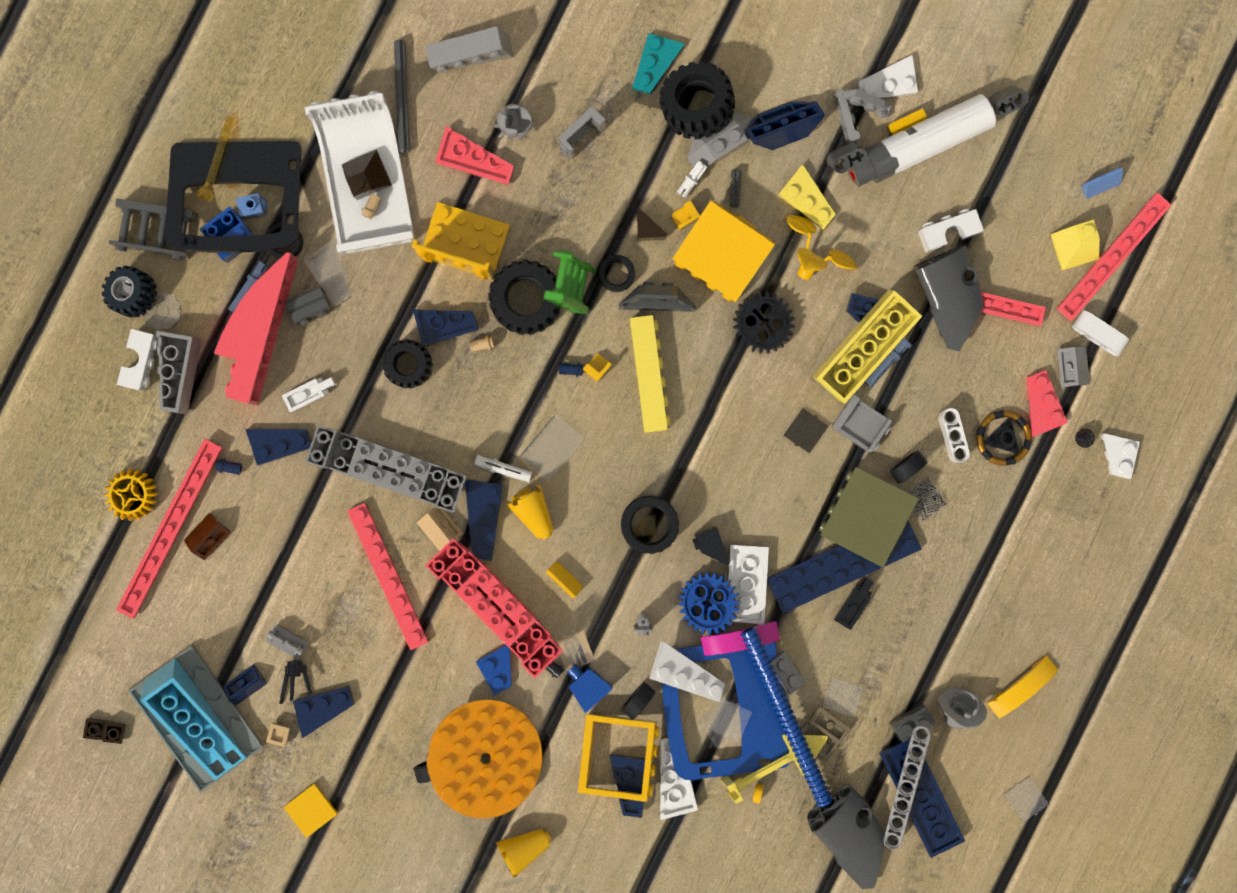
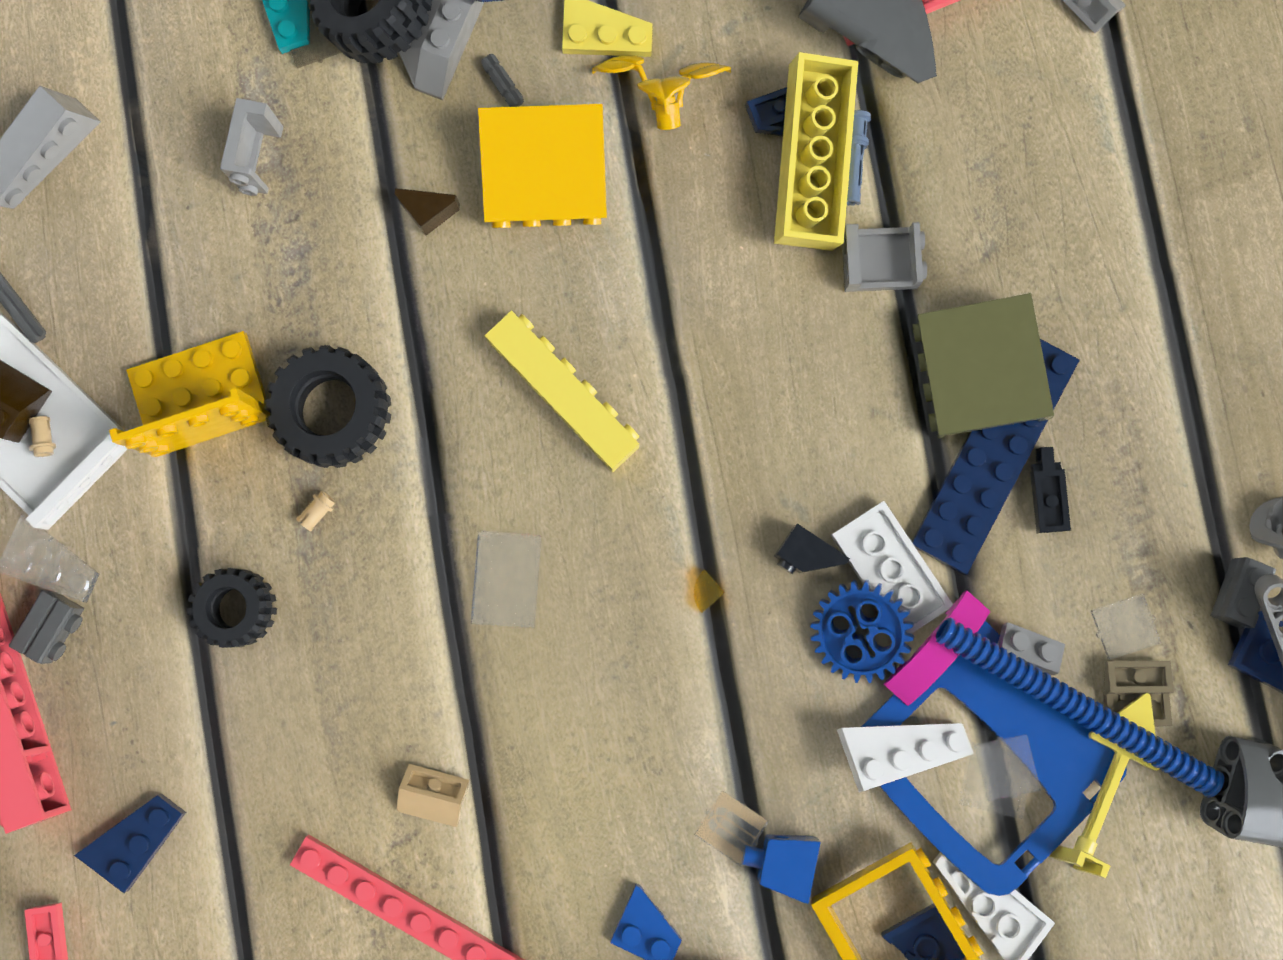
camera: 30 degrees left, 5 degrees down
(228, 467) = (78, 927): dark blue pin -> none
(308, 393) = (127, 744): white hinge -> none
(386, 468) = (293, 770): light grey slope -> none
(443, 325) = (246, 524): dark blue wing -> none
(468, 157) = (129, 284): coral wing -> none
(481, 461) = (426, 665): white pin -> none
(483, 514) = (477, 733): dark blue wing -> none
(496, 606) = (581, 846): coral slope -> none
(514, 121) = (152, 194): light grey hair -> none
(533, 511) = (540, 681): yellow cone -> none
(554, 669) = (717, 873): black pin -> none
(564, 579) = (648, 741): yellow slope -> none
(570, 283) = (381, 356): bright green fence -> none
(571, 369) = (456, 458): dark blue pin -> none
(597, 367) = (489, 432): yellow panel -> none
(616, 259) = (414, 274): black tyre -> none
(638, 701) = (866, 833): black tyre -> none
(643, 625) = (799, 727): light grey hinge -> none
(657, 298) = (503, 287): dark grey wedge -> none
(666, 540) = (745, 584): black tyre -> none
(685, 216) = (464, 159): yellow panel -> none
(692, 178) = (437, 105): white axle -> none
(758, 793) = (1116, 838): yellow tile -> none
(777, 312) = (670, 194): black gear -> none
(805, 430) = (817, 318): clear smoke piece -> none
(908, 466) = (984, 265): black tyre -> none
(929, 500) = (1045, 291): clear piece -> none
(960, 442) = (1005, 172): white beam -> none
(1004, 437) = (1073, 146): black piece -> none
(1043, 404) = (1090, 69): coral wing -> none
(1085, 438) = (1173, 73): black plate -> none
(1120, 455) = (1232, 63): white wing -> none

